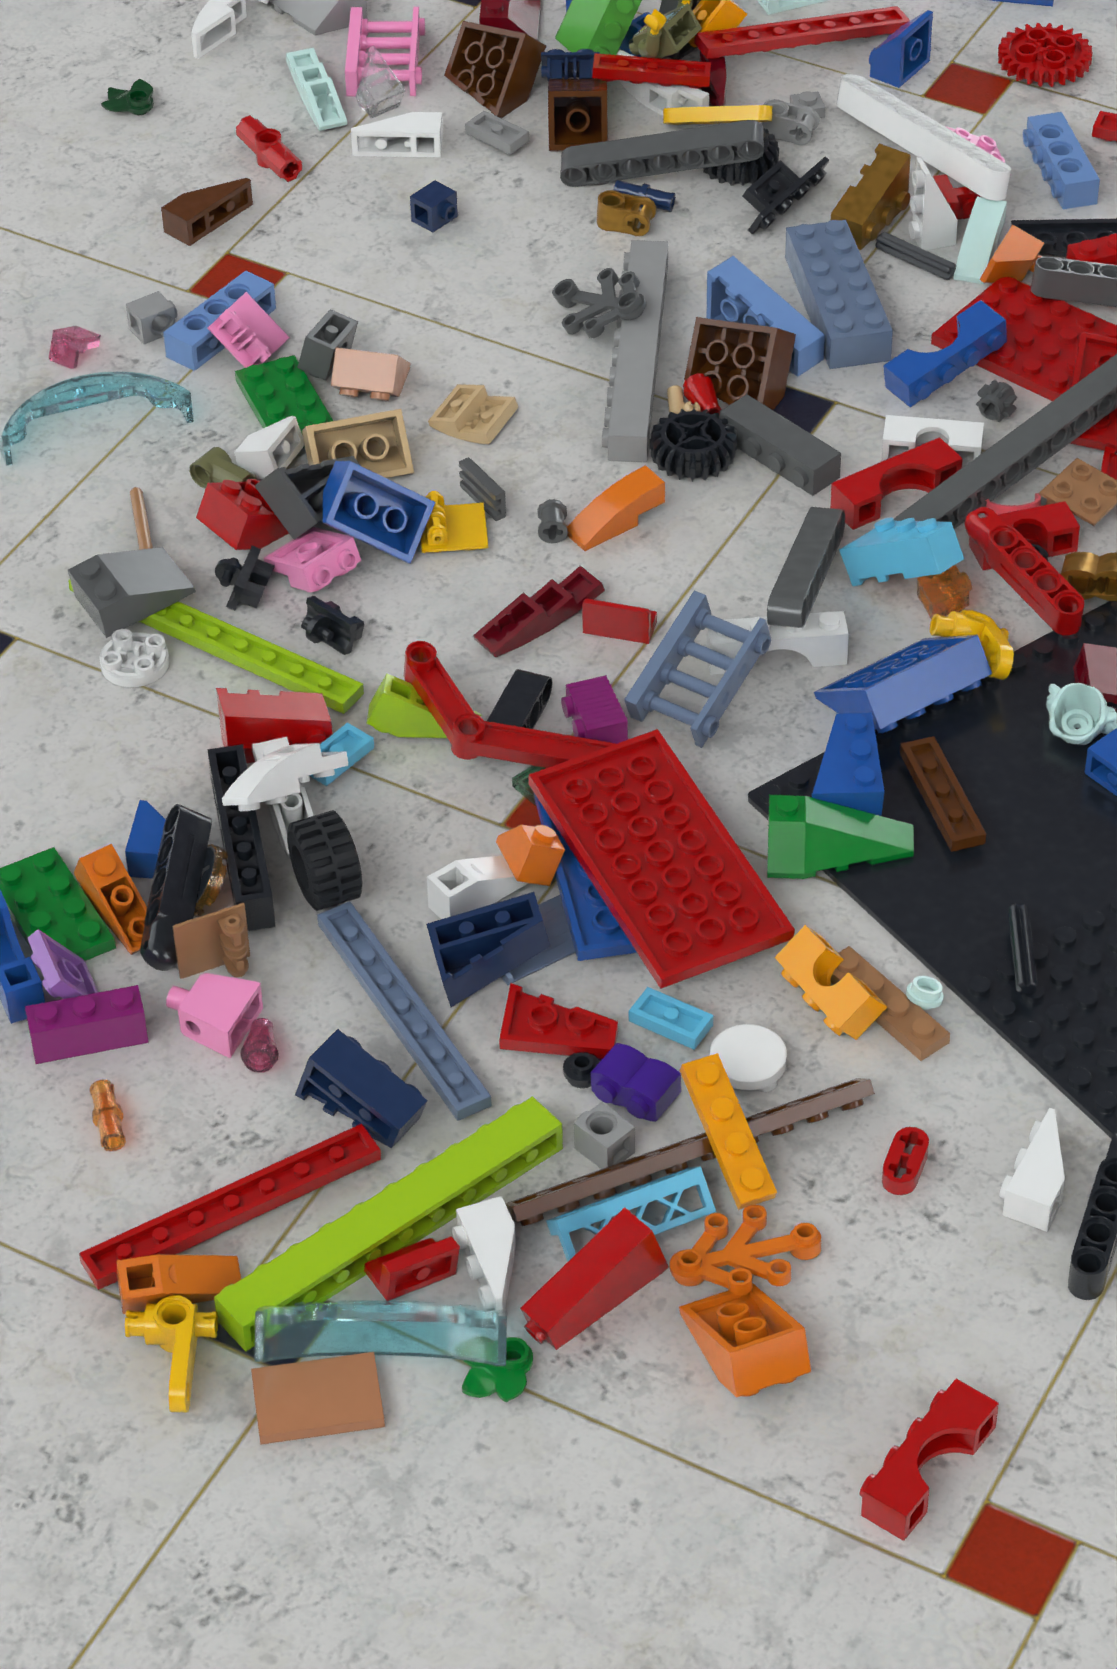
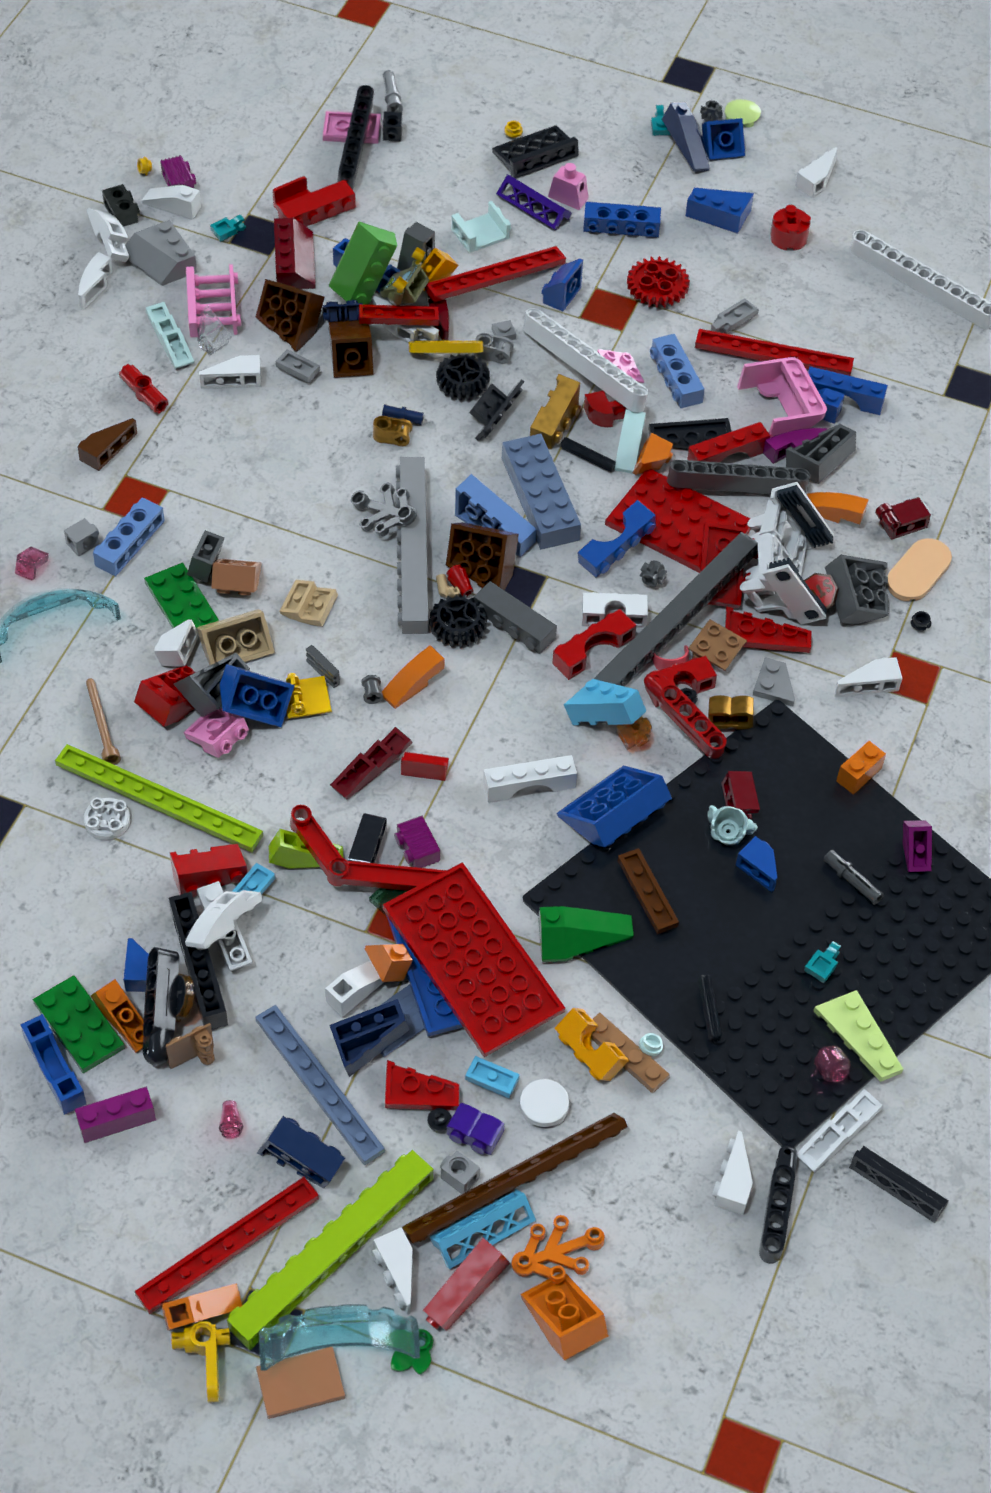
camera: 10 degrees left, 10 degrees up
(62, 970) = (95, 1077): medium lavender plate -> none
(107, 1115) = (137, 1182): clear orange pin -> none
(128, 586) = (98, 766): dark grey slope -> none
(136, 100) = (43, 349): dark green plate -> none
(216, 467) = (143, 662): olive piece -> none
(217, 1010) = (198, 1096): bright pink torso -> none
(232, 573) = (170, 748): black hips -> none
(248, 332) = (150, 547): bright pink hinge -> none
(324, 860) = (256, 978): black tyre -> none
(328, 624) = (235, 785): black hips -> none
(413, 1267) = (348, 1280): red panel -> none
(433, 206) = (262, 432): dark blue brick -> none
(662, 153) = (412, 383): dark grey beam -> none
(679, 644) = (469, 789): sand blue fence -> none
(728, 1131) = (539, 1166): light orange plate -> none
(806, 567) = (544, 722): dark grey beam -> none
(851, 765) = (589, 879): blue wedge -> none
(899, 1159) = (656, 1173): red beam -> none
(933, 219) = (597, 425): white slope -> none
(955, 1423) = (702, 1366): red arch -> none
(993, 639) = (659, 762): yellow piece -> none

